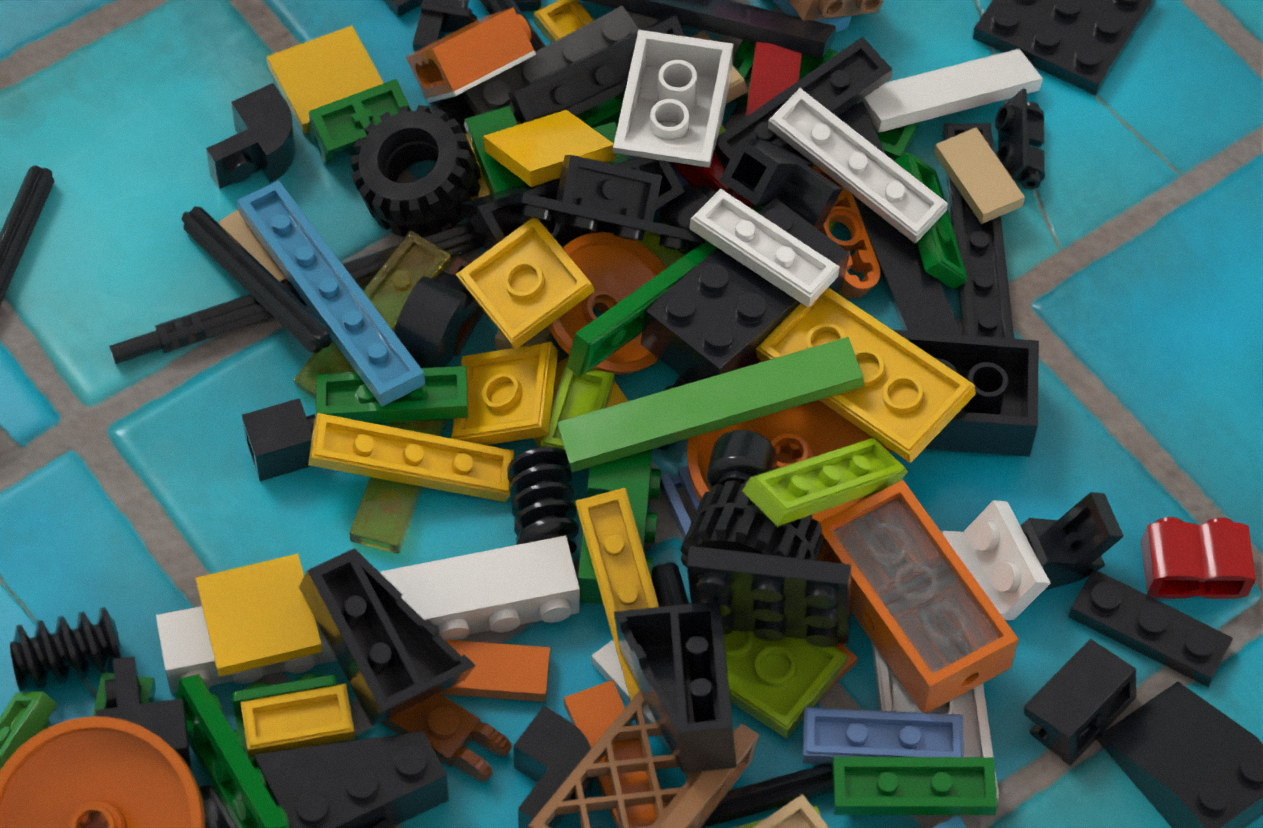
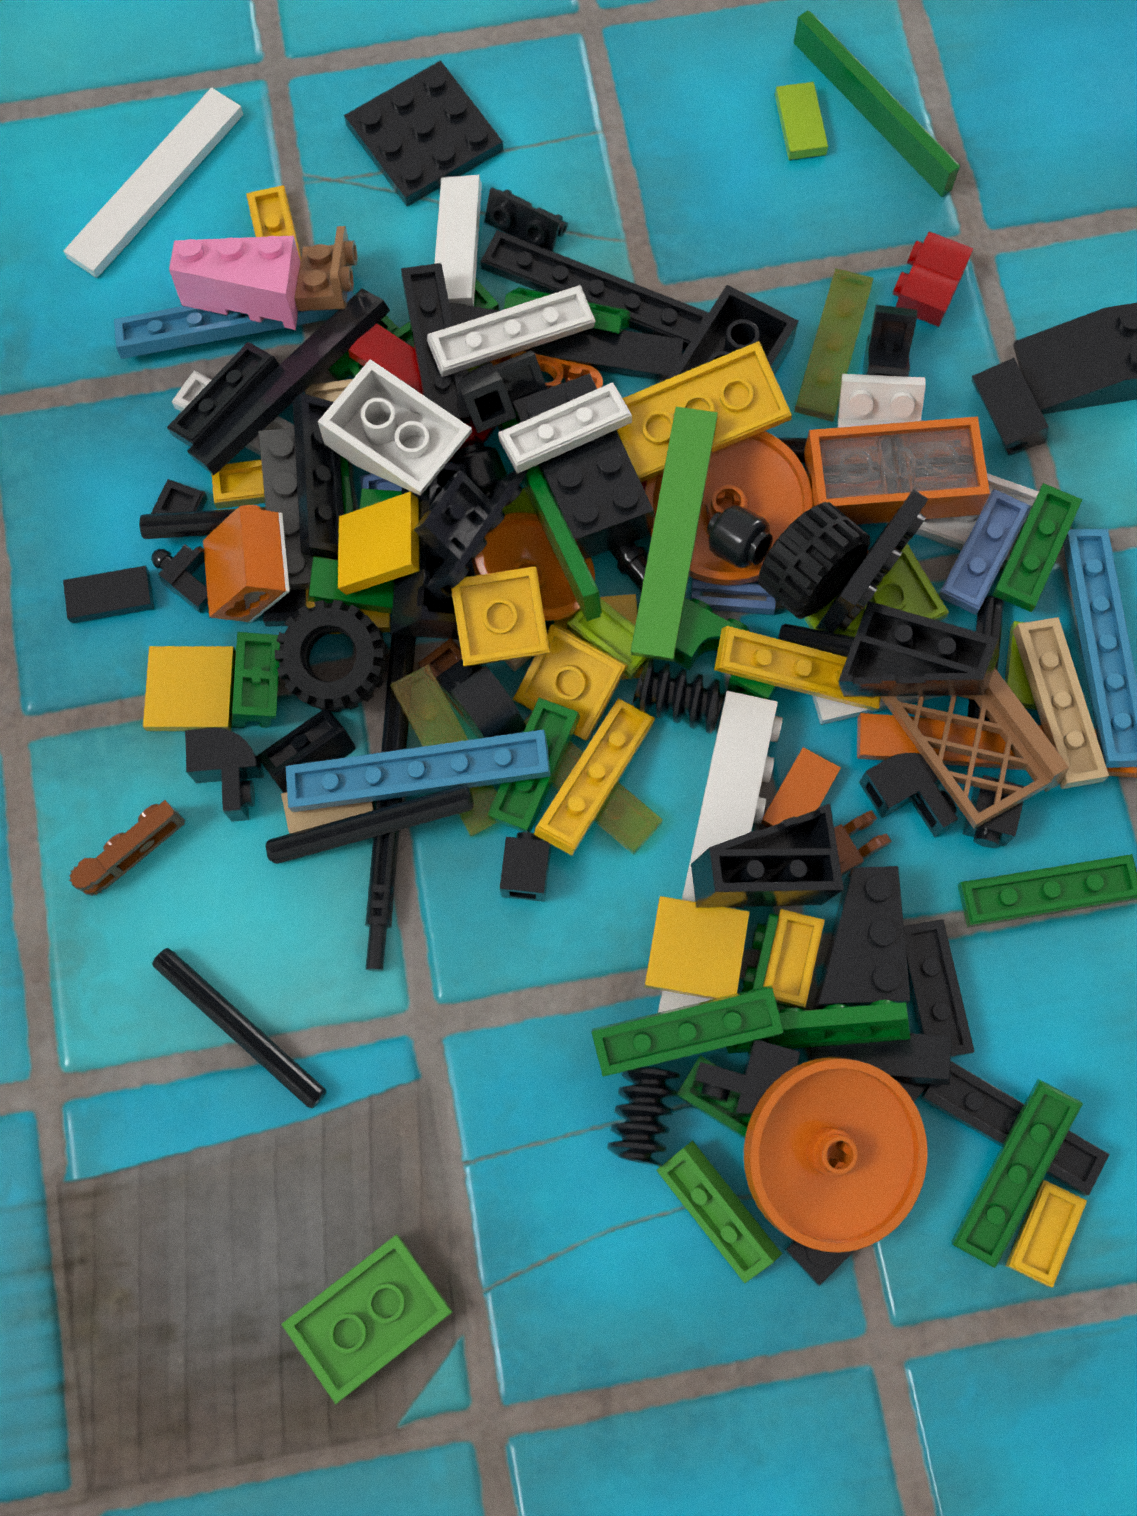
camera: 60 degrees left, 15 degrees up
(136, 98) = (127, 849): none -> dark orange hinge
(164, 636) = (687, 1030): none -> green plate
(327, 206) = (313, 741): none -> black slope
(824, 481) = (802, 481): lime tile -> none
(979, 175) = (545, 258): tan tile -> none
(1128, 486) = (833, 344): none -> clear yellow tile
(1150, 627) = (966, 337): black plate -> none

